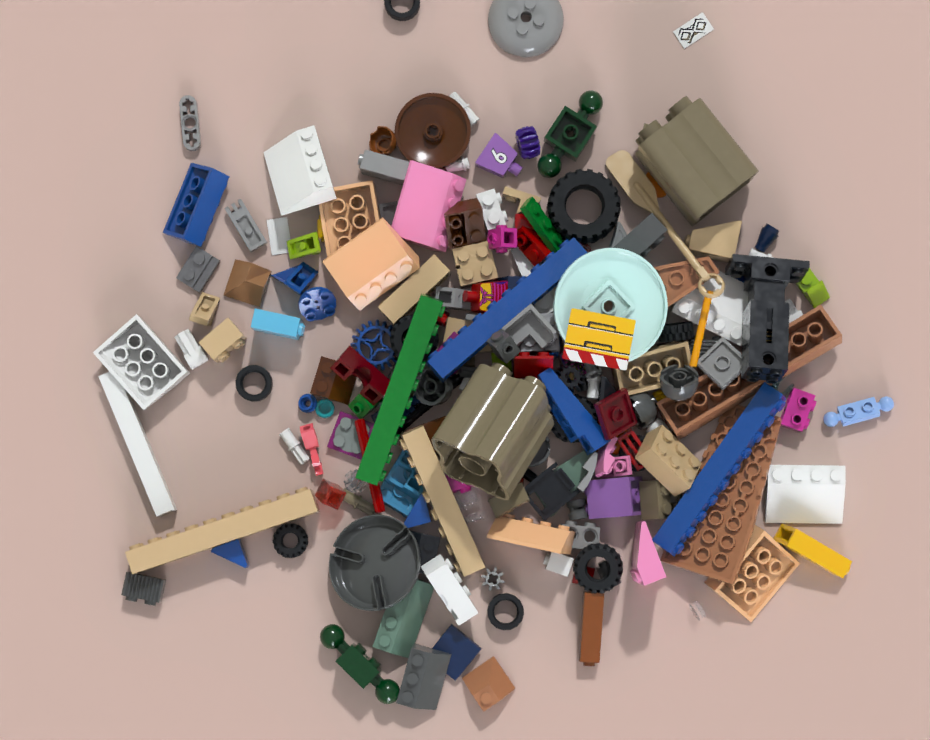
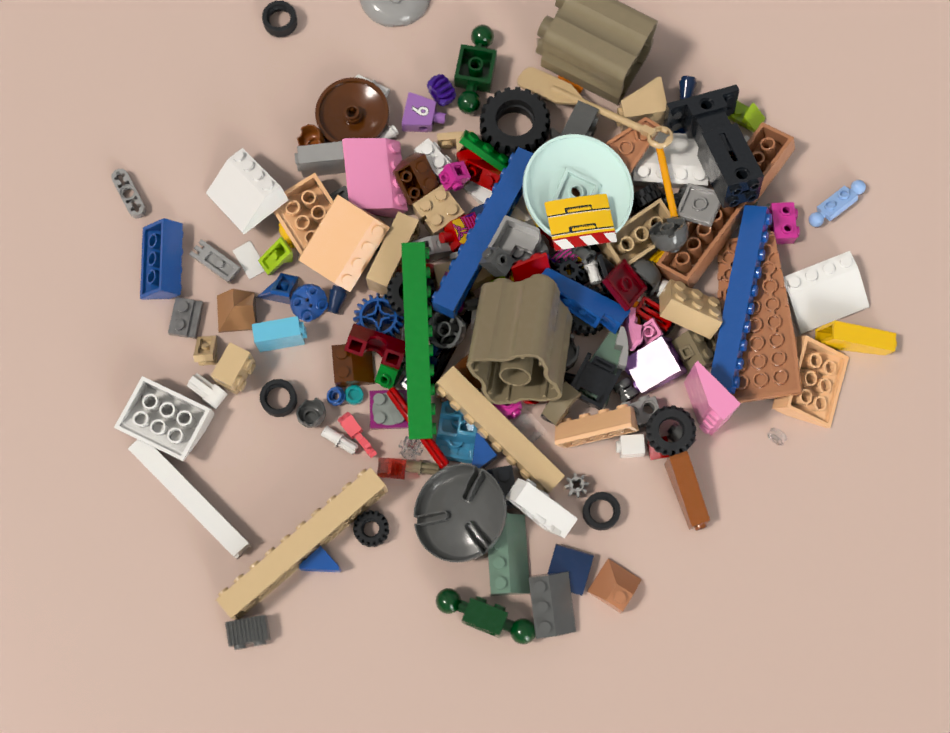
camera: 25 degrees left, 10 degrees down
(278, 410) = (311, 413): none -> dark grey hair
(344, 310) = (336, 299): none -> dark blue cone
(646, 499) = (685, 353): none -> dark tan piece

